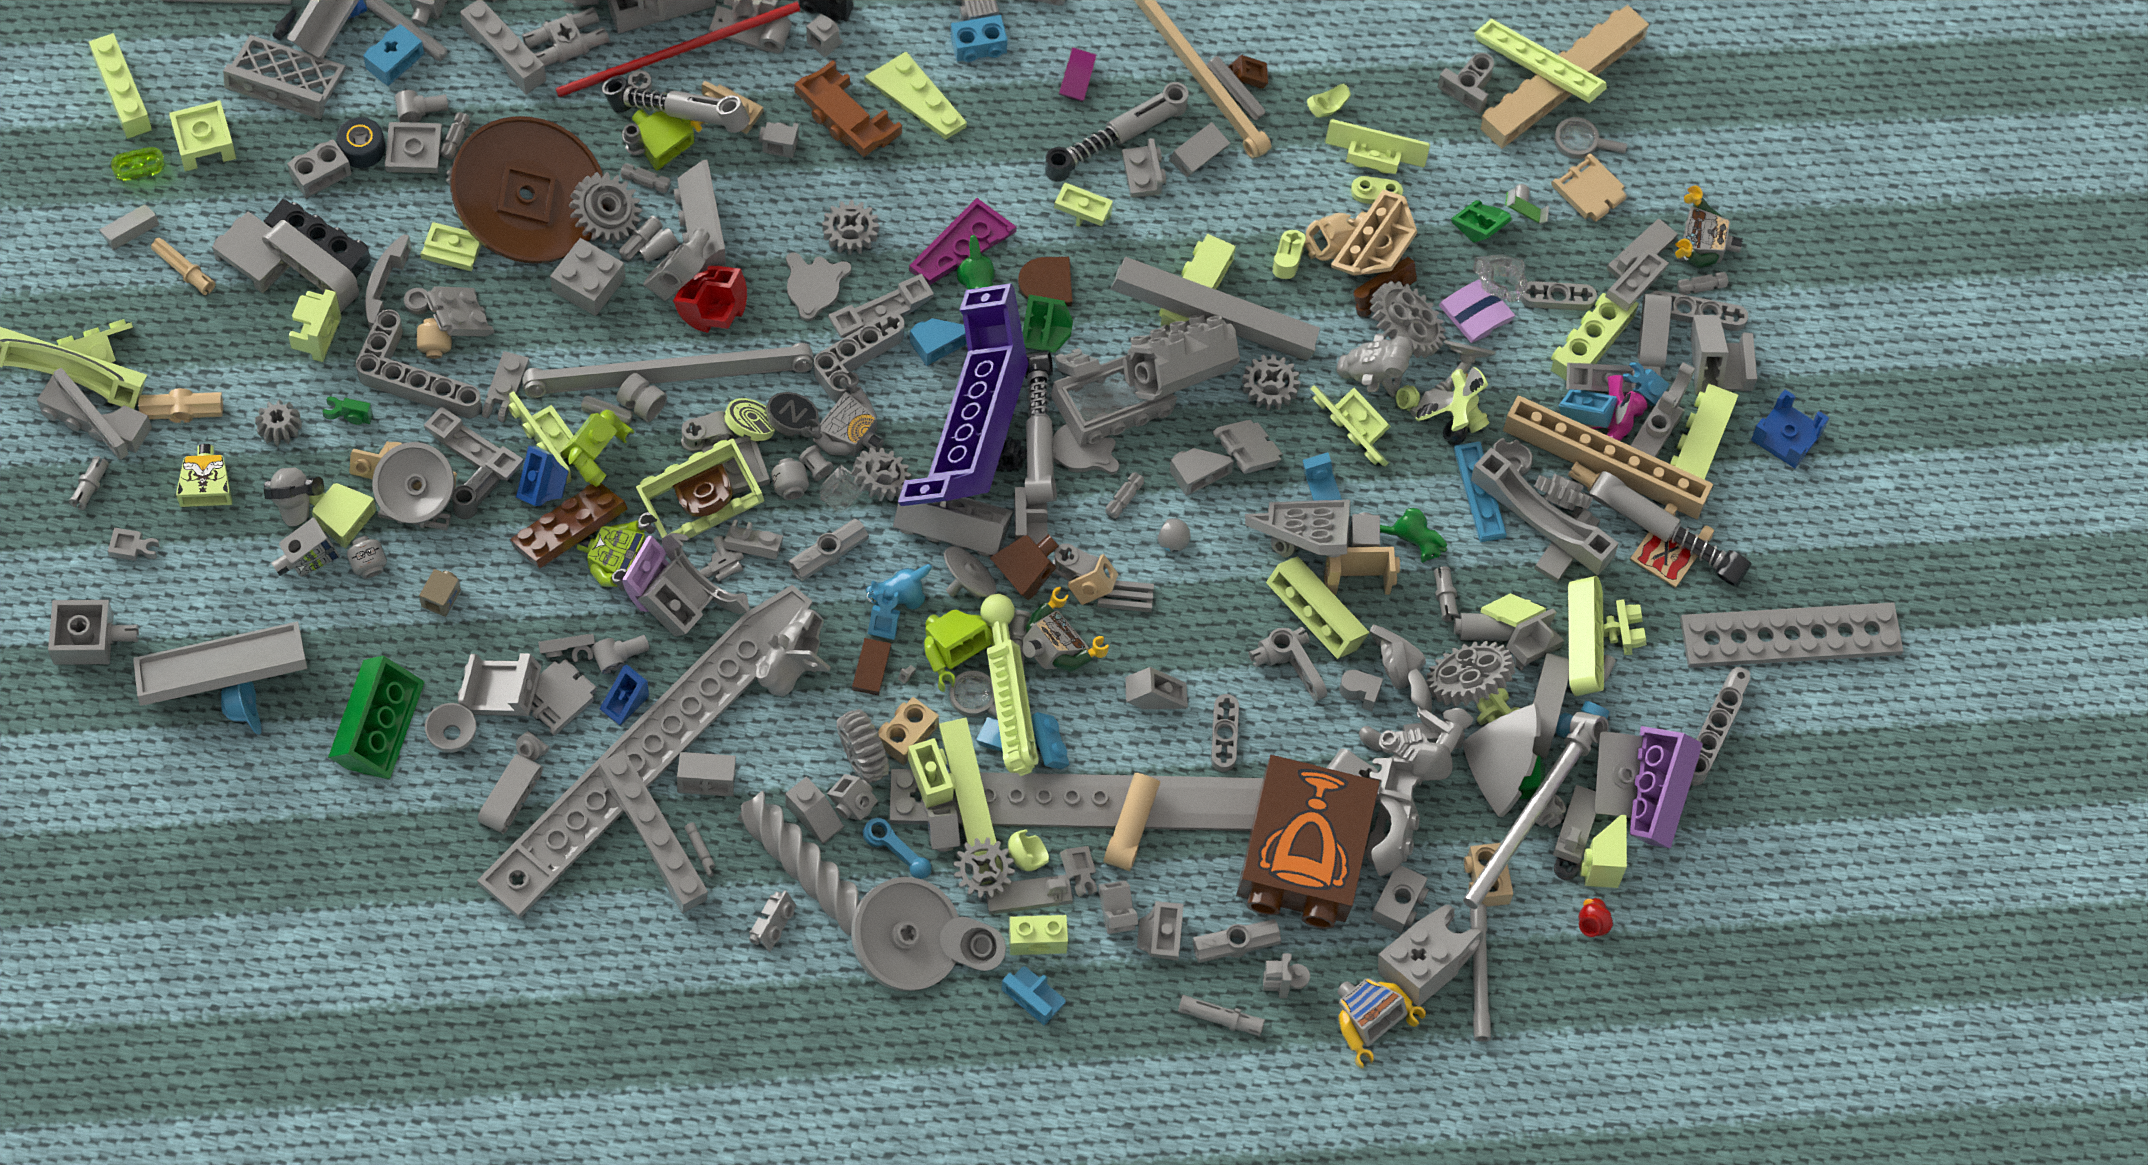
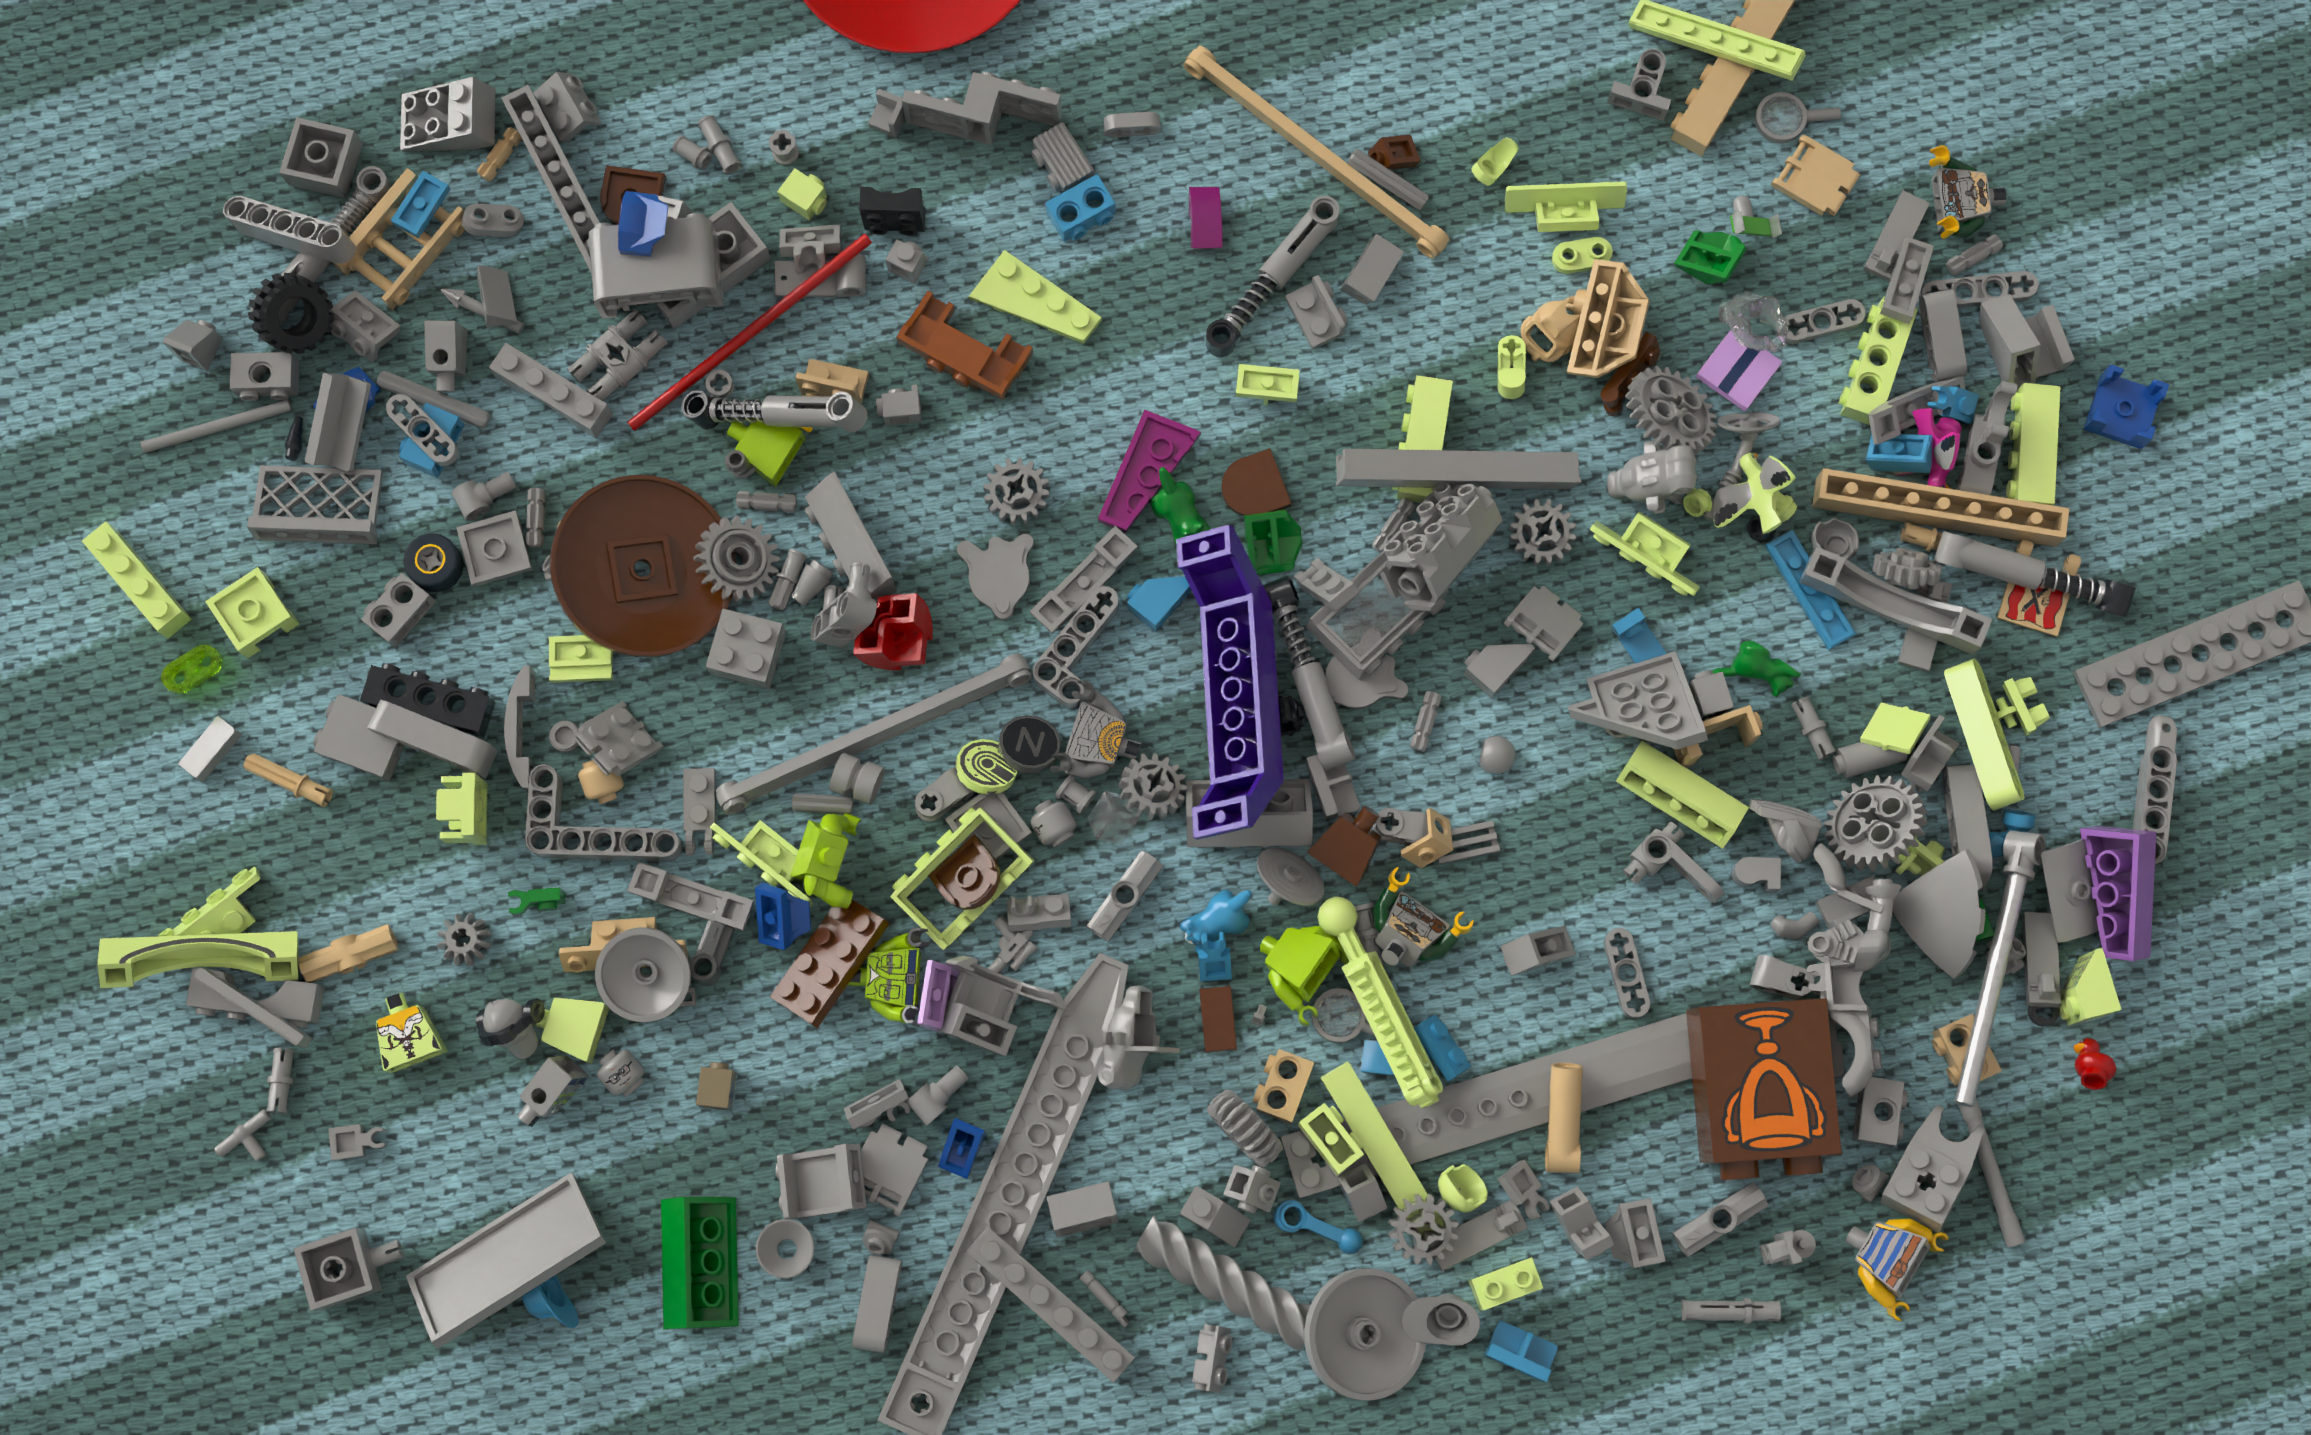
camera: 10 degrees left, 15 degrees up
(44, 515) = (243, 1134): none -> light grey piece
(389, 50) = (414, 409): none -> light grey beam
(1369, 952) = (1869, 1181): none -> light grey plate

